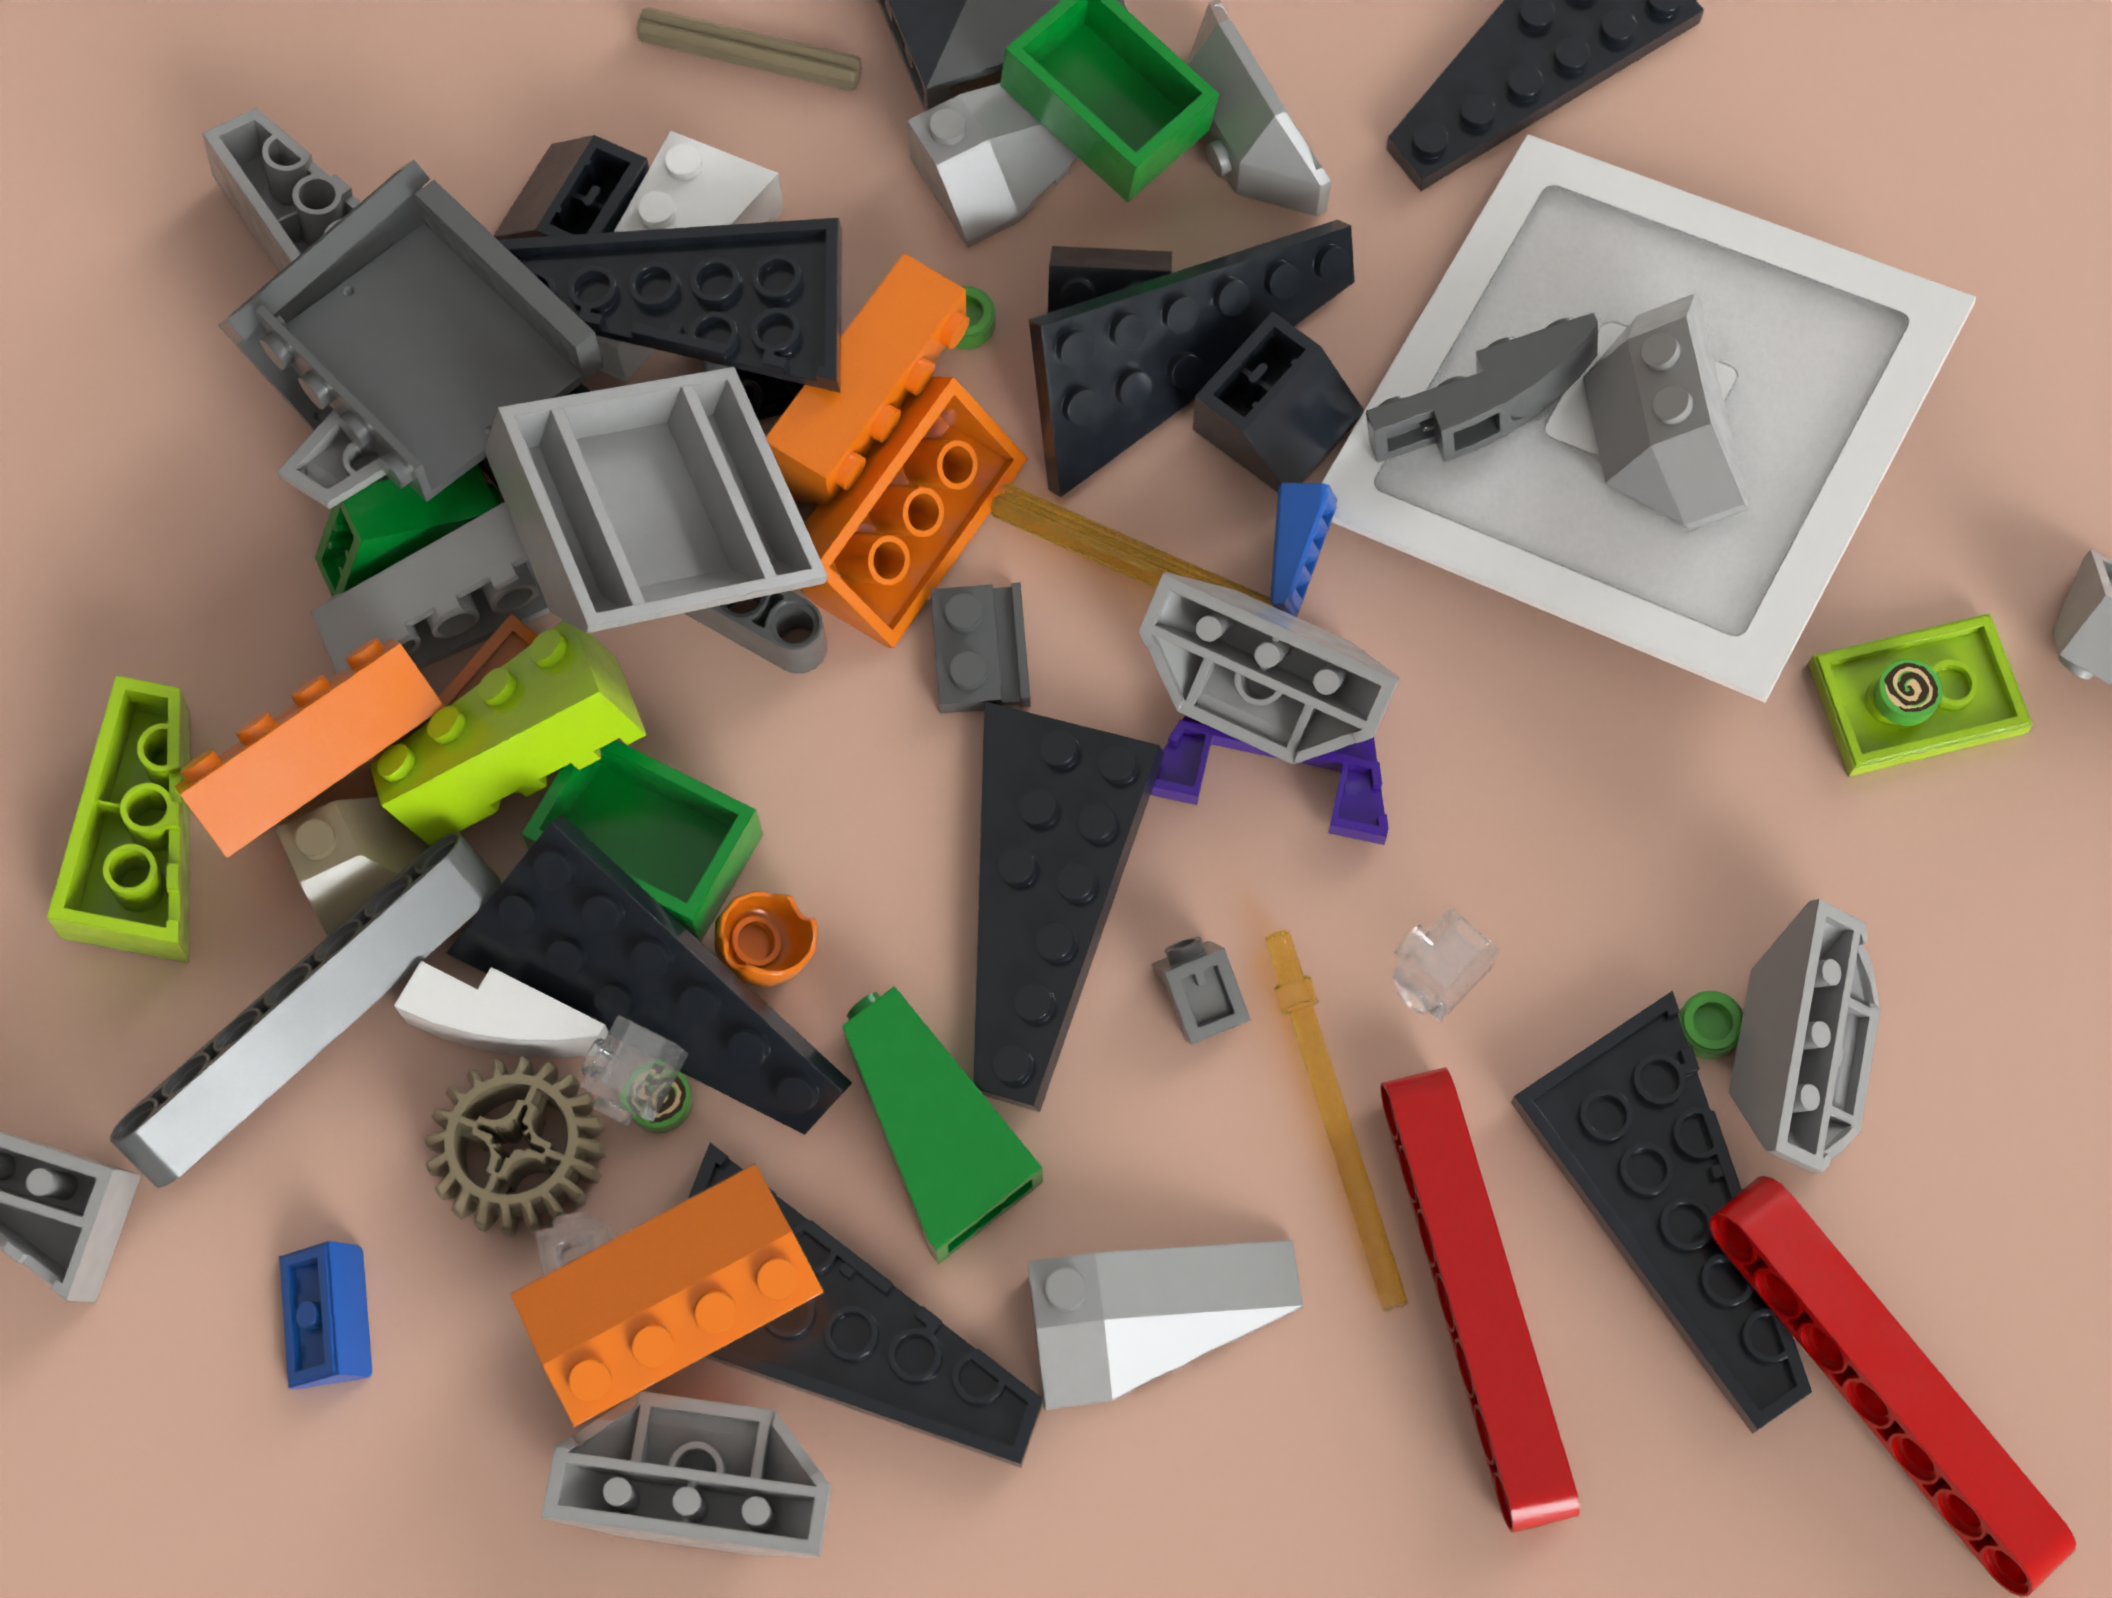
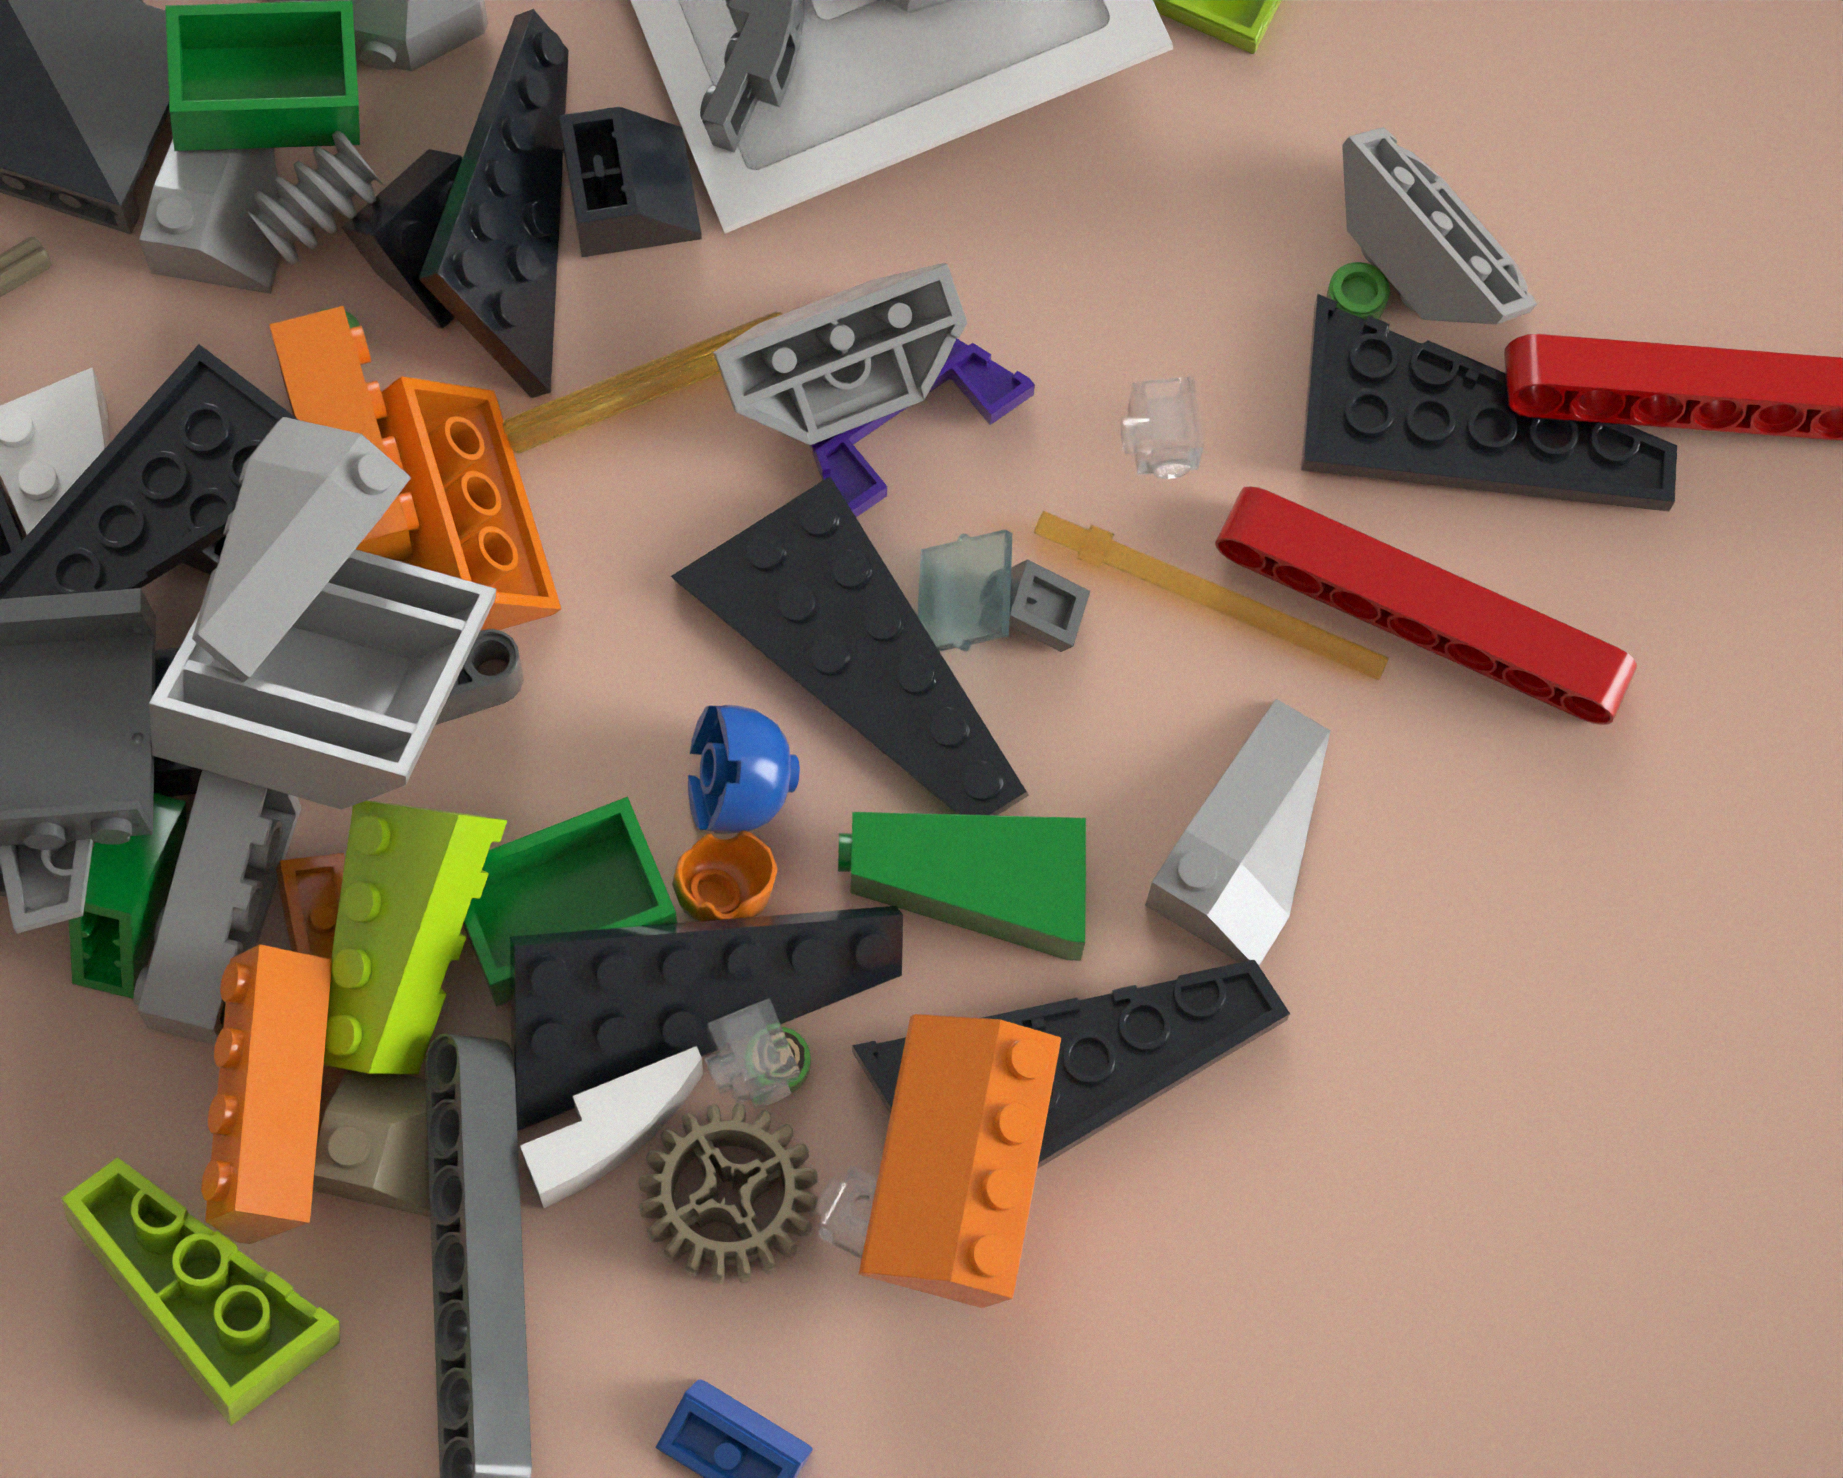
camera: 55 degrees left, 0 degrees up
(691, 1478) = (1115, 1249): light grey wedge -> none
(734, 390) = (296, 521): none -> light grey wedge
(864, 880) = (742, 770): none -> blue cylinder
(980, 647) = (620, 546): dark grey plate -> none
(1050, 210) = (315, 197): none -> light grey piece
(1162, 925) = (966, 590): none -> clear light blue piece
(1300, 532) = (743, 245): blue slope -> none

